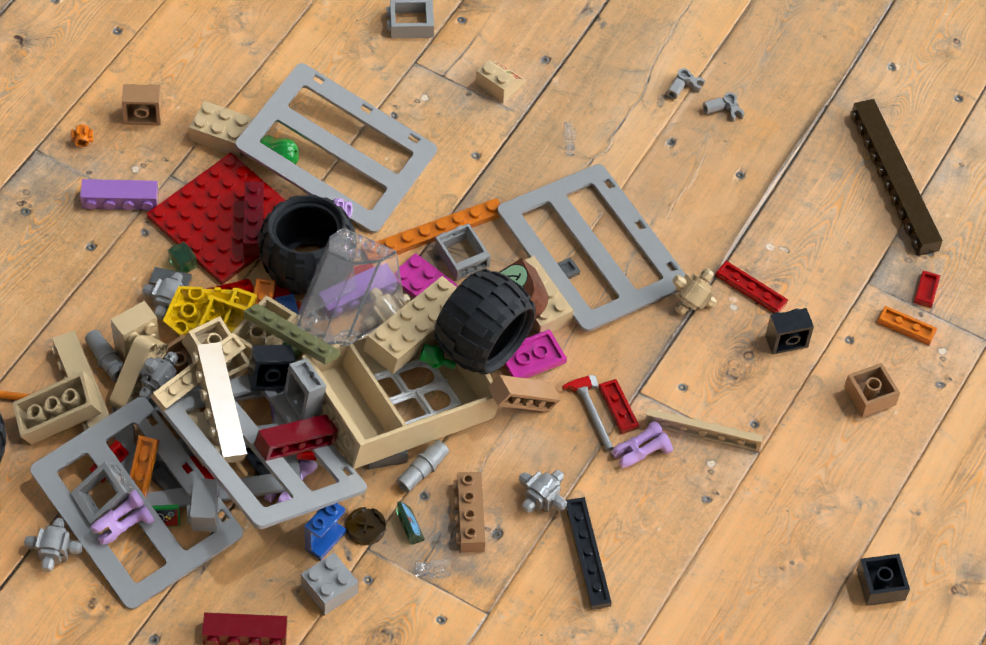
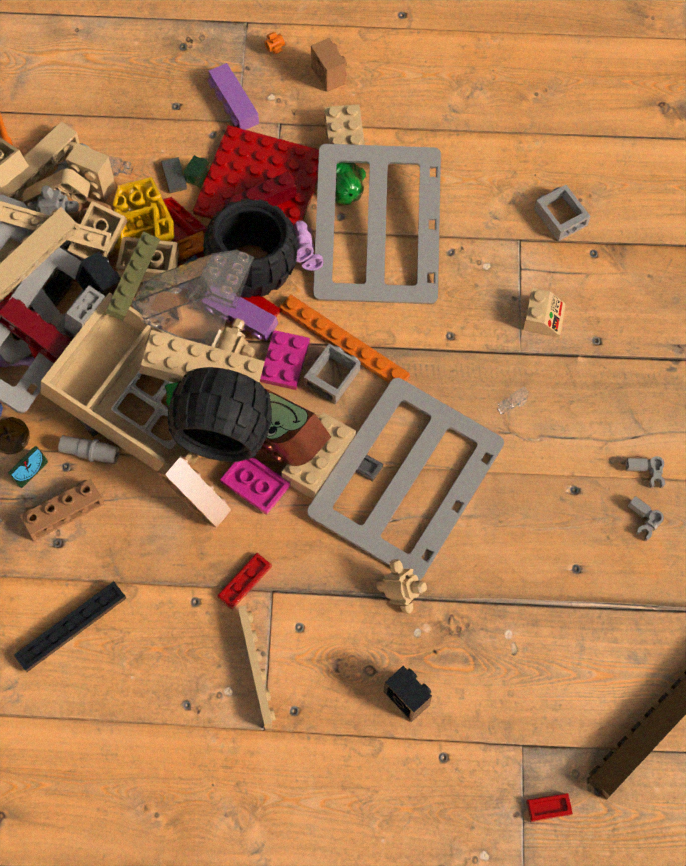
camera: 65 degrees right, 10 degrees up
(163, 293) = (152, 169): light grey piece -> none
(542, 491) = (111, 557): light grey piece -> none
(582, 386) = (247, 539): light grey piece -> none
(634, 453) = (218, 635): lavender piece -> none
(751, 287) = (447, 638): red tile -> none
(872, 390) = (386, 803): medium nougat brick -> none
(907, 325) = (492, 806): orange tile -> none

